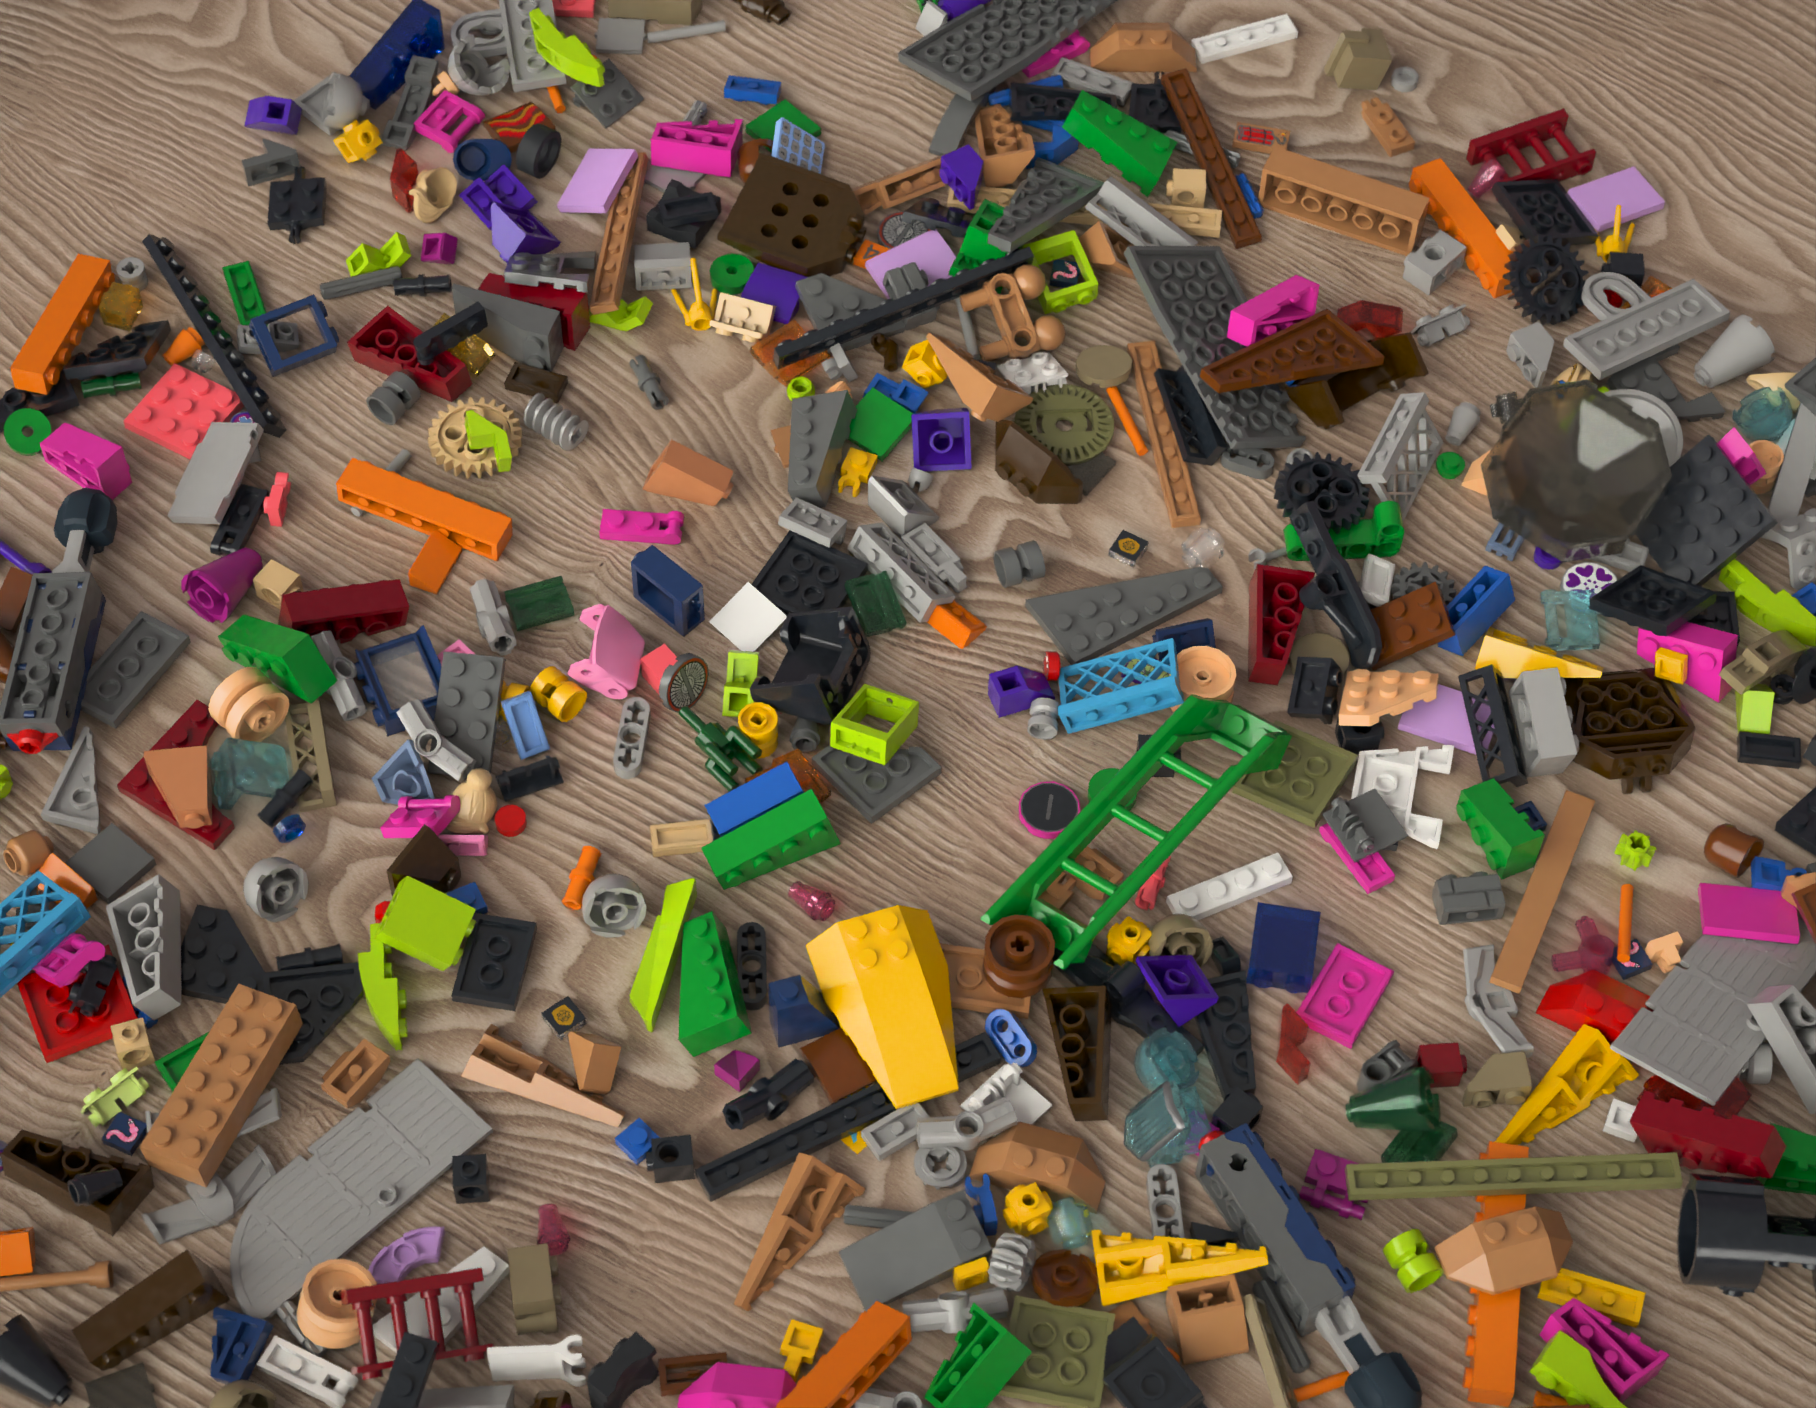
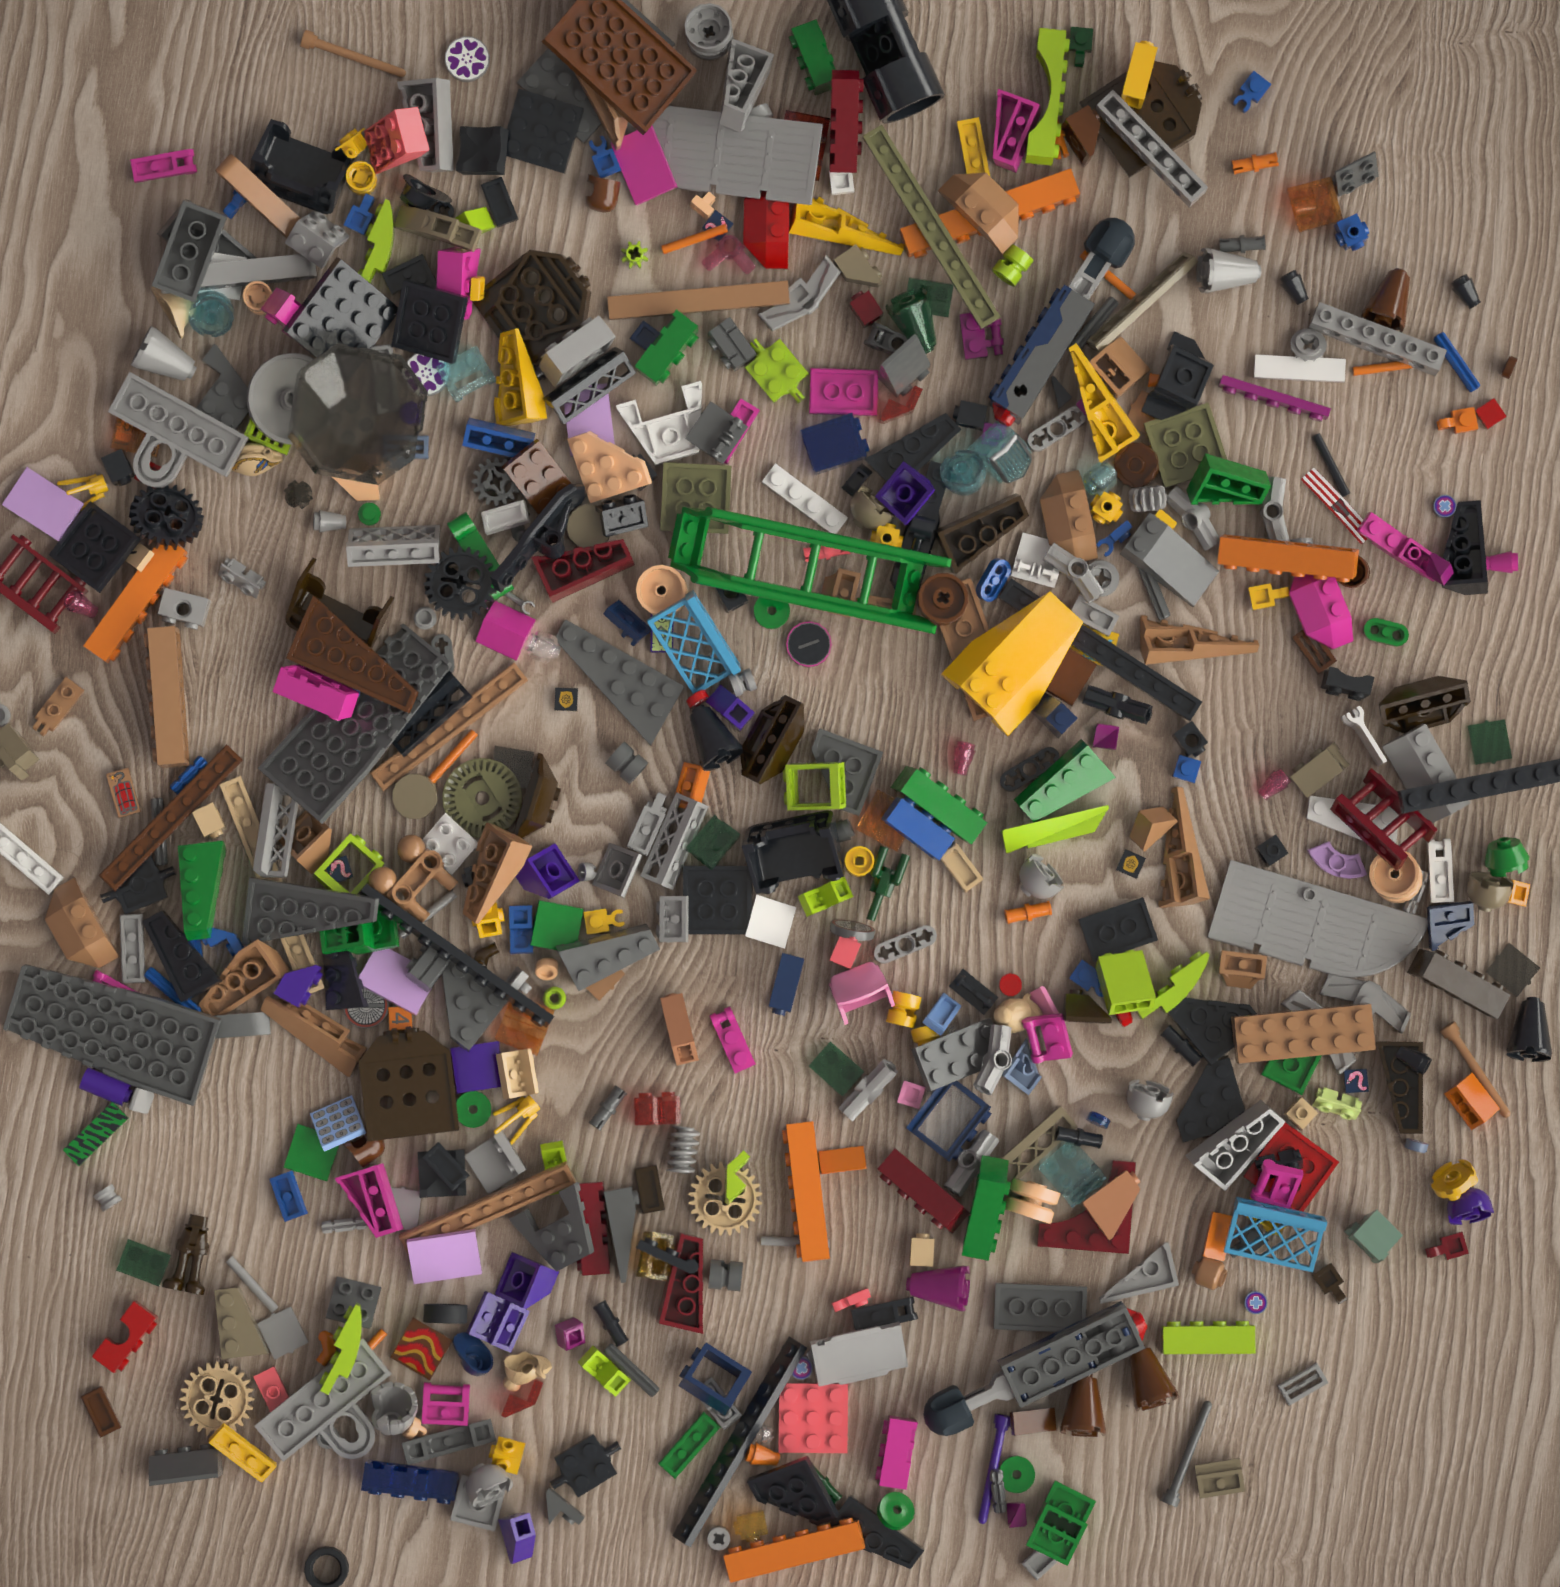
camera: 125 degrees left, 30 degrees up
(111, 863) = (1184, 1219): dark grey tile -> none
(614, 421) = (657, 1110): none -> clear red brick
(952, 708) = (772, 739): none -> dark brown wedge
(991, 650) = (713, 739): none -> black cone
(1246, 527) = (505, 630): none -> dark pink slope
(1342, 1050) = (904, 367): none -> dark grey slope
(1378, 318) = (266, 629): clear red slope -> none
(1409, 935) = (777, 370): none -> lime plate
(1531, 352) = (234, 498): light grey slope -> none

